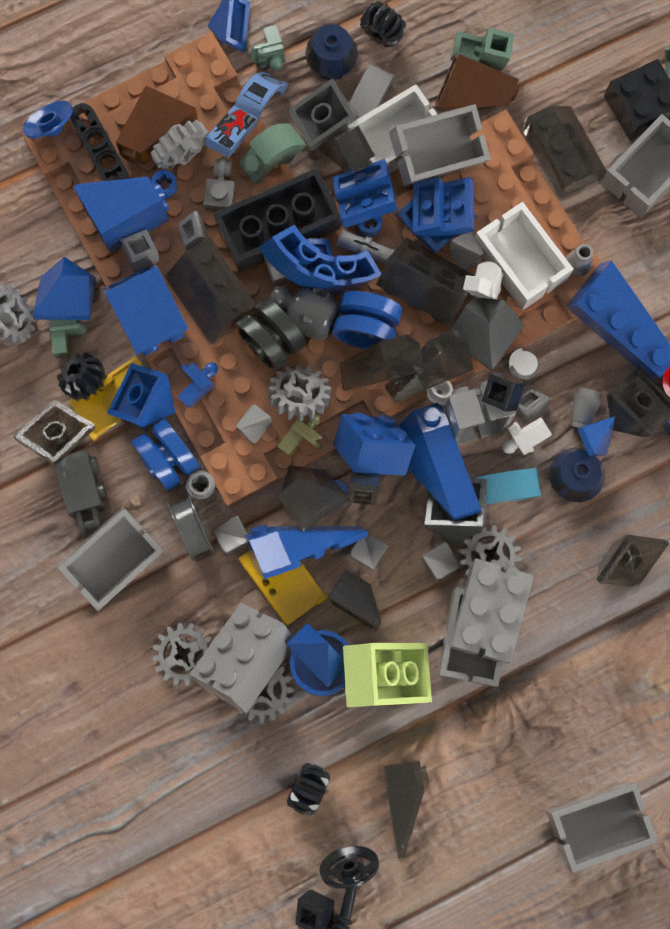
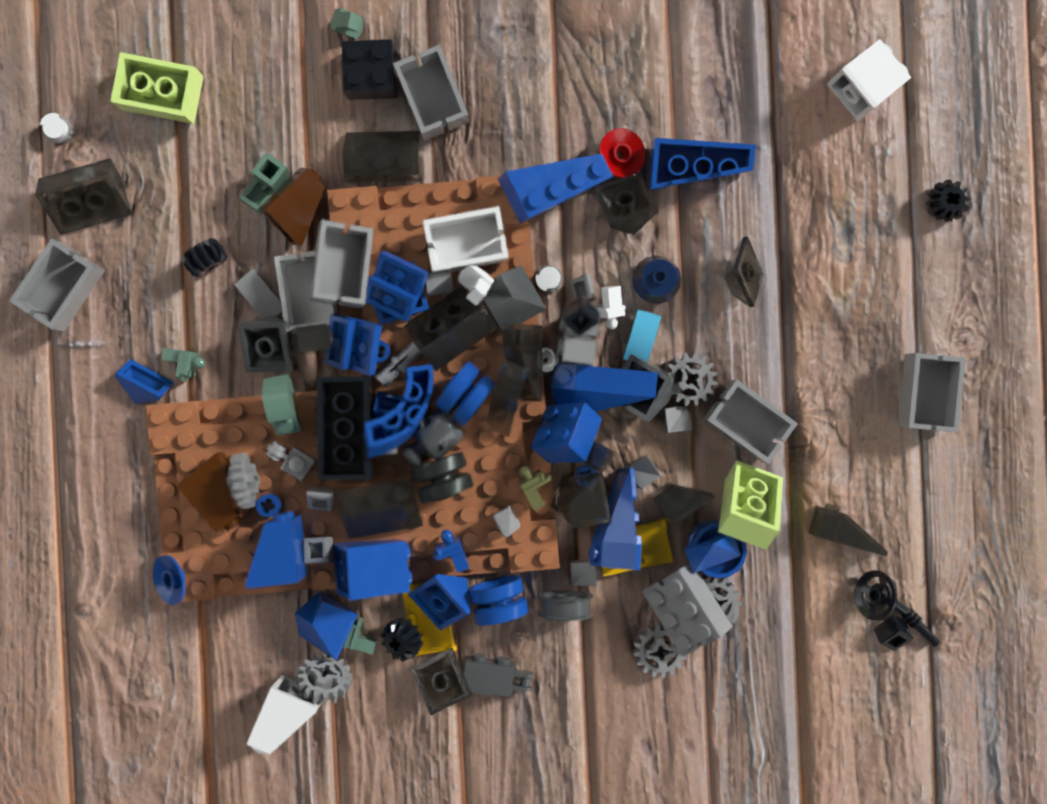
camera: 65 degrees left, 10 degrees up
(99, 152) = (216, 543): black beam -> none
(110, 558) = (562, 678): light grey piece -> none
(199, 479) = (535, 590): light grey cone -> none
(245, 113) = (235, 410): medium blue piece -> none
(299, 392) = (505, 481): light grey gear -> none
(308, 789) = (805, 600): black gear -> none
(331, 52) = (209, 311): dark blue cone -> none
(491, 611) = (743, 404): light grey piece -> none
(581, 259) = (492, 200): light grey cone -> none
(585, 407) = (605, 246): light grey cone -> none
(597, 436) = (638, 252): blue slope -> none

